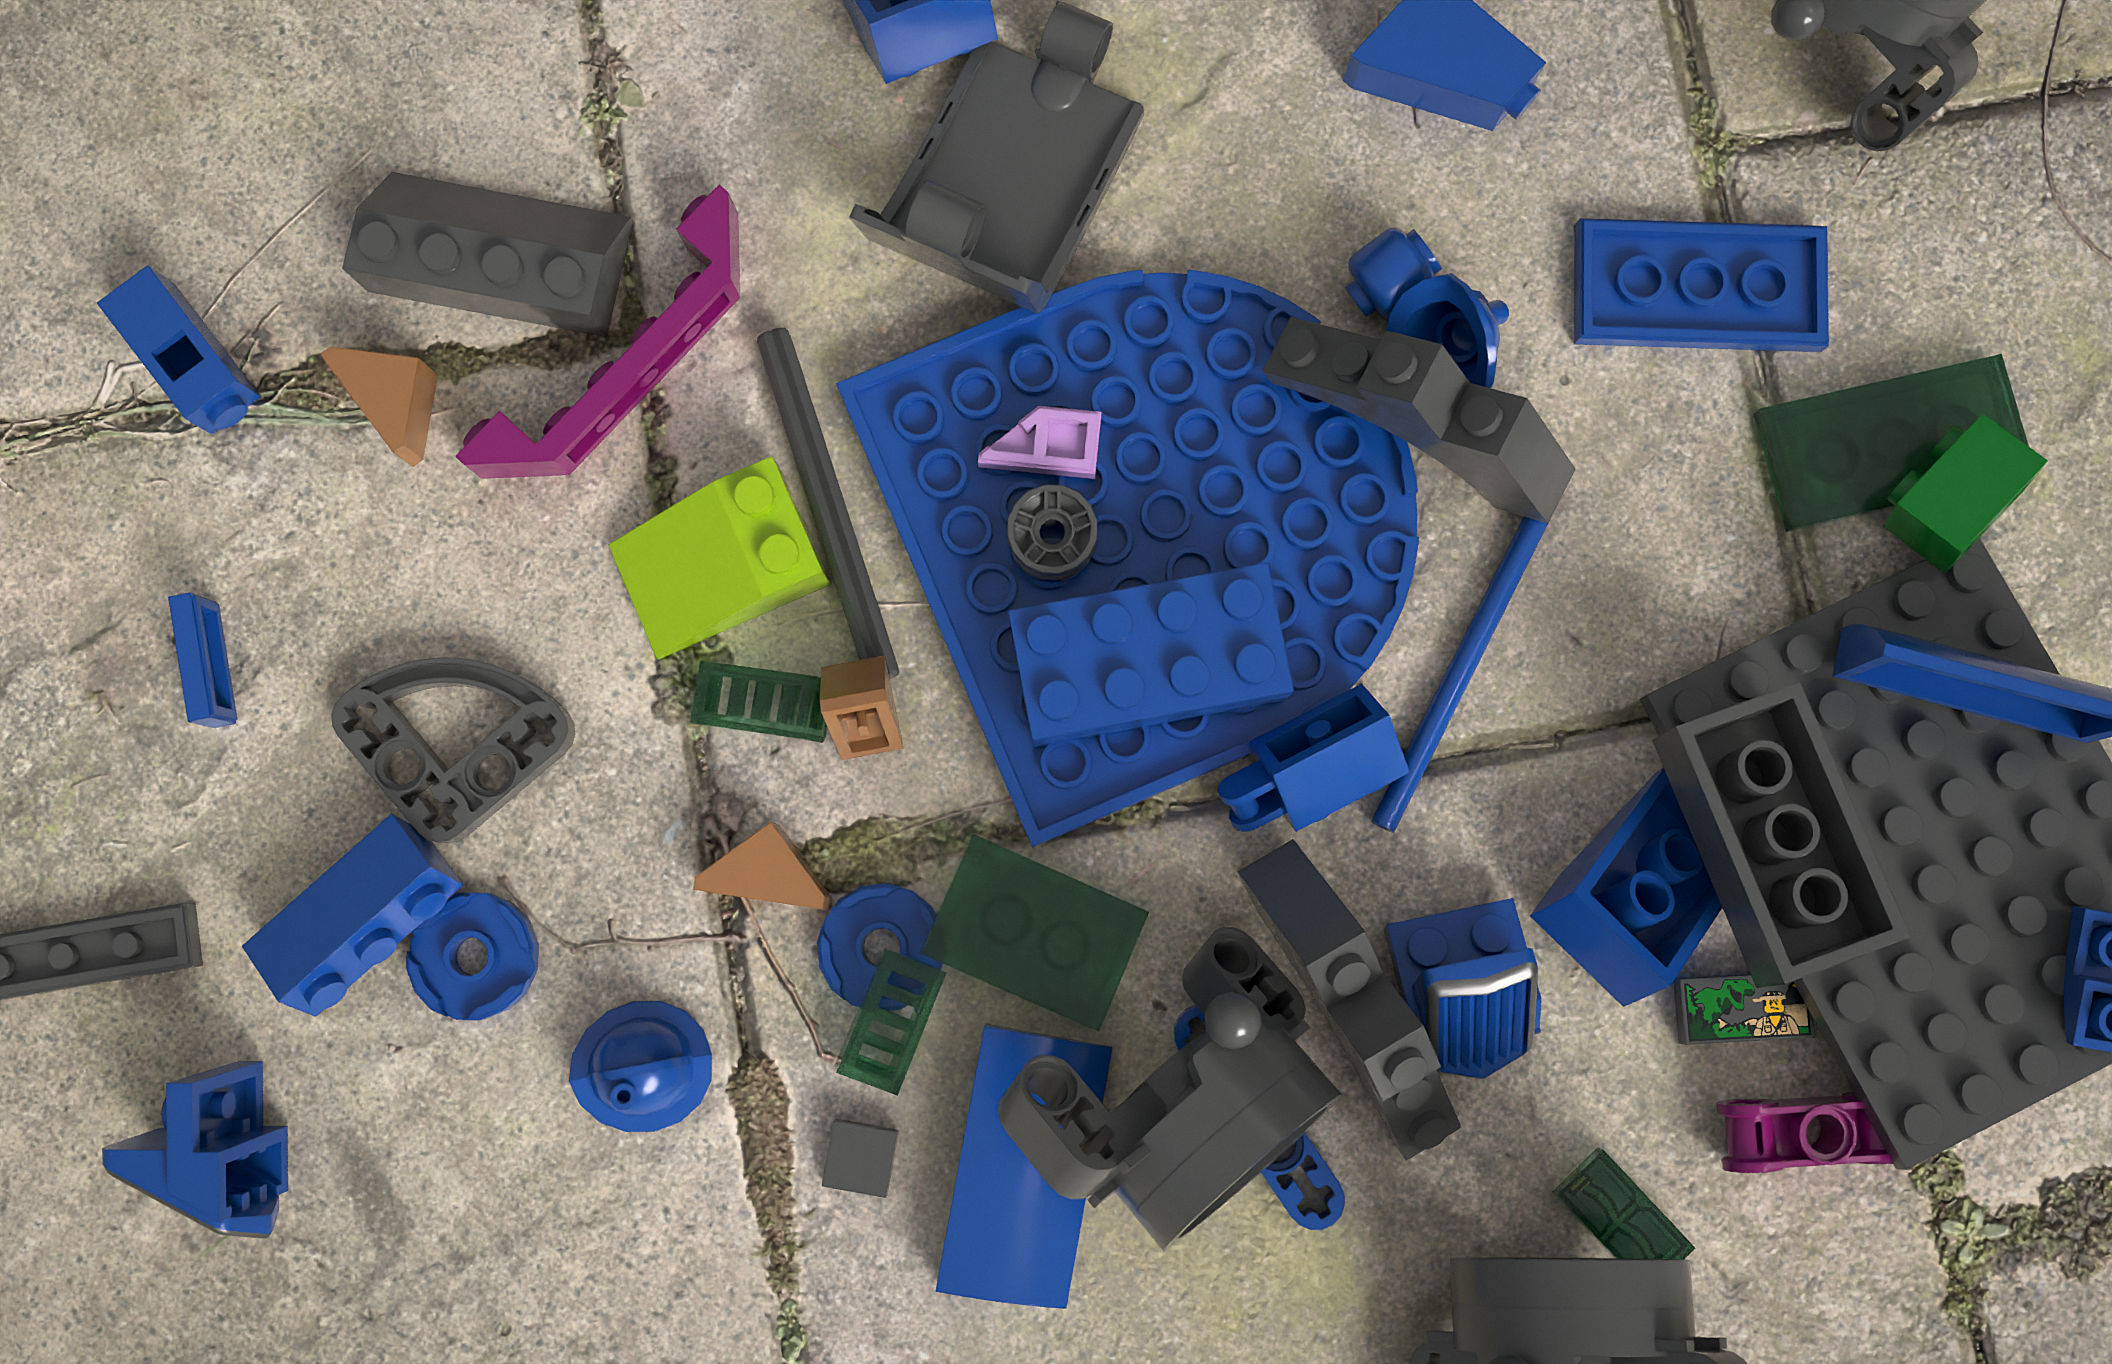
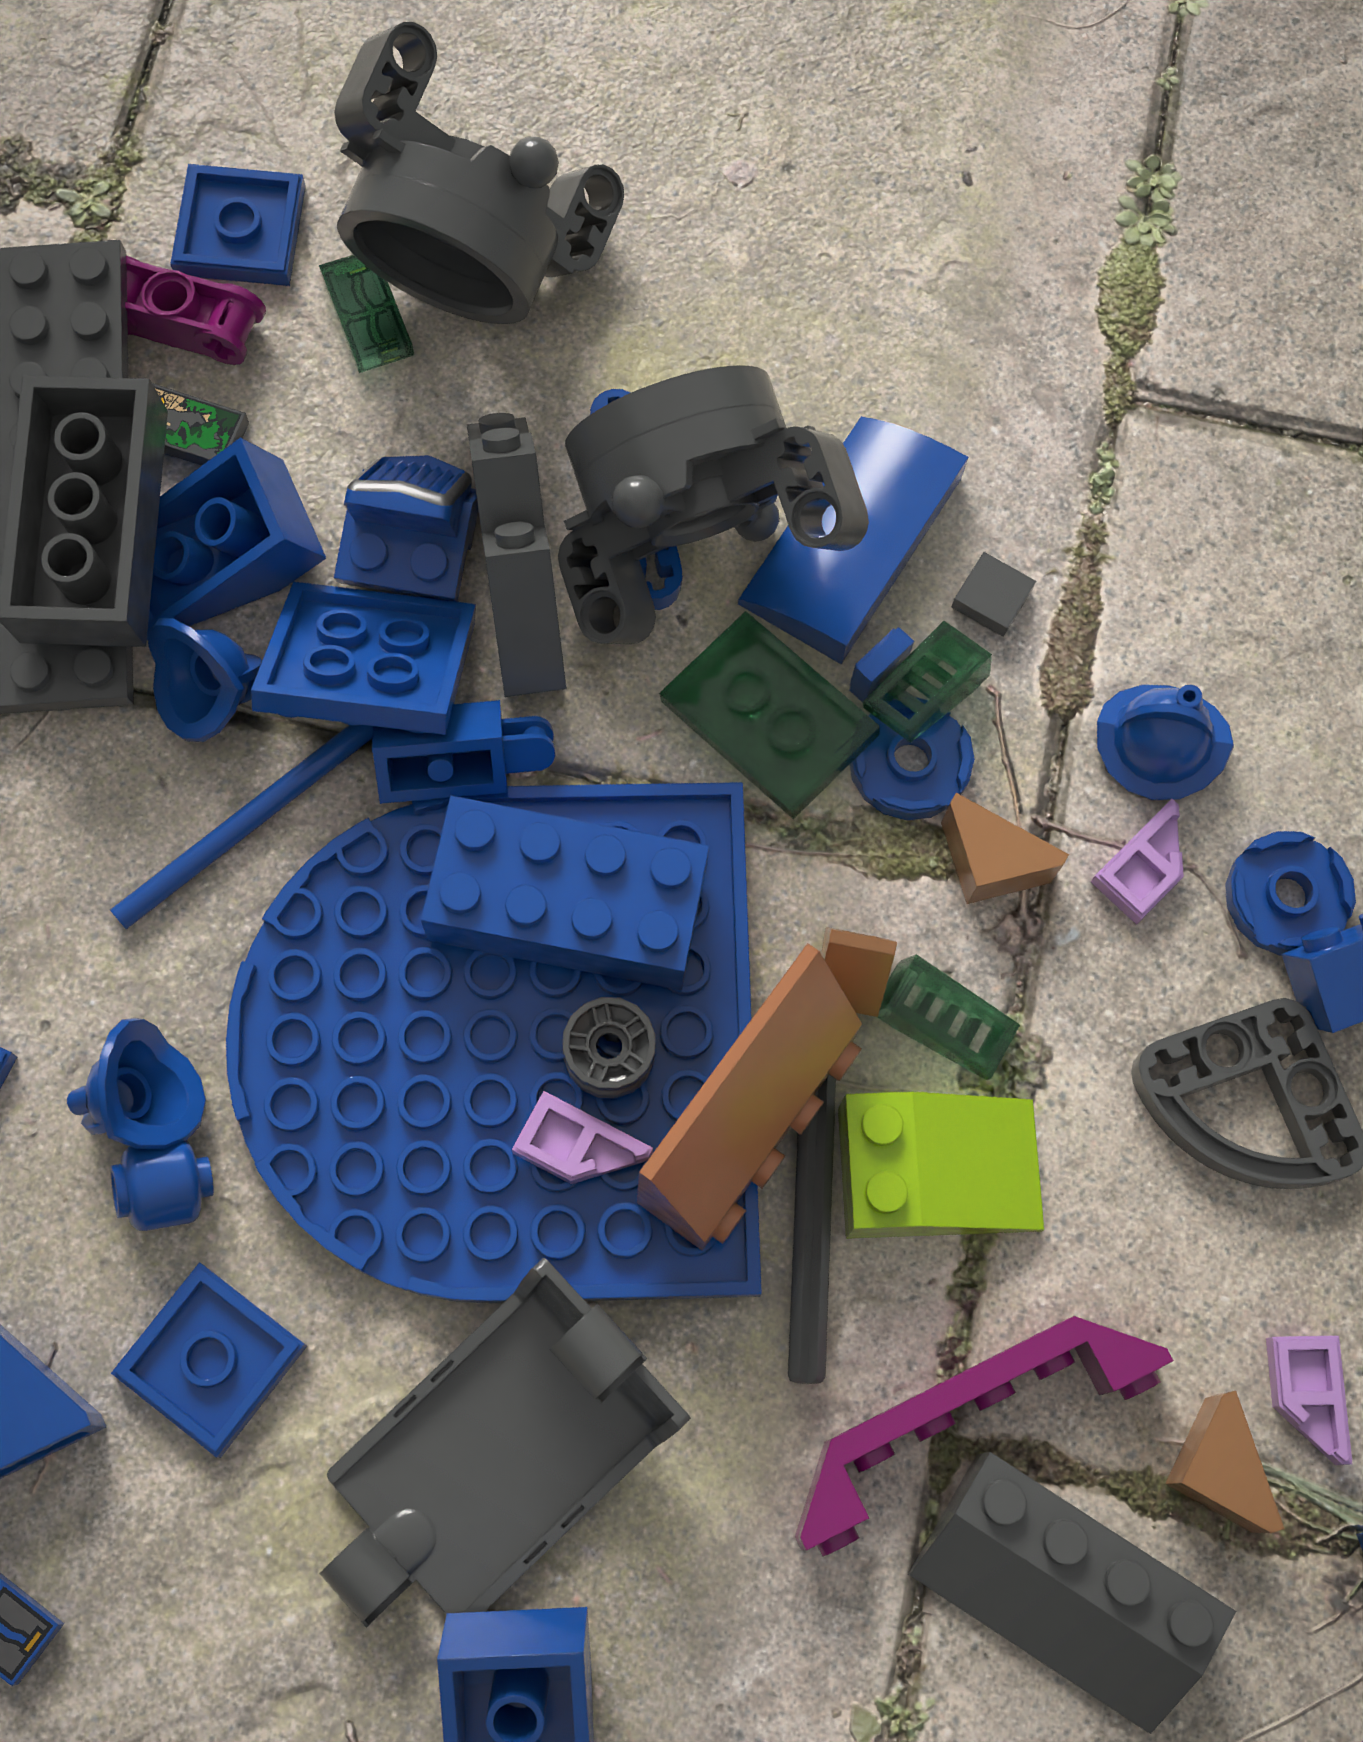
camera: 165 degrees left, 10 degrees down
(331, 499) = (1311, 1391): none -> lavender tile
(619, 928) = (1145, 866): none -> lavender tile
(902, 512) = (751, 1104): none -> nougat slope
(944, 1026) = (880, 663): none -> blue tile
(1283, 160) = (209, 1360): none -> blue tile
(1427, 401) = (209, 1027): dark grey arch -> none
(1440, 816) = (365, 658): none -> blue plate
(1582, 741) = (198, 678): none -> blue helmet
(1802, 1266) = (238, 224): none -> blue tile

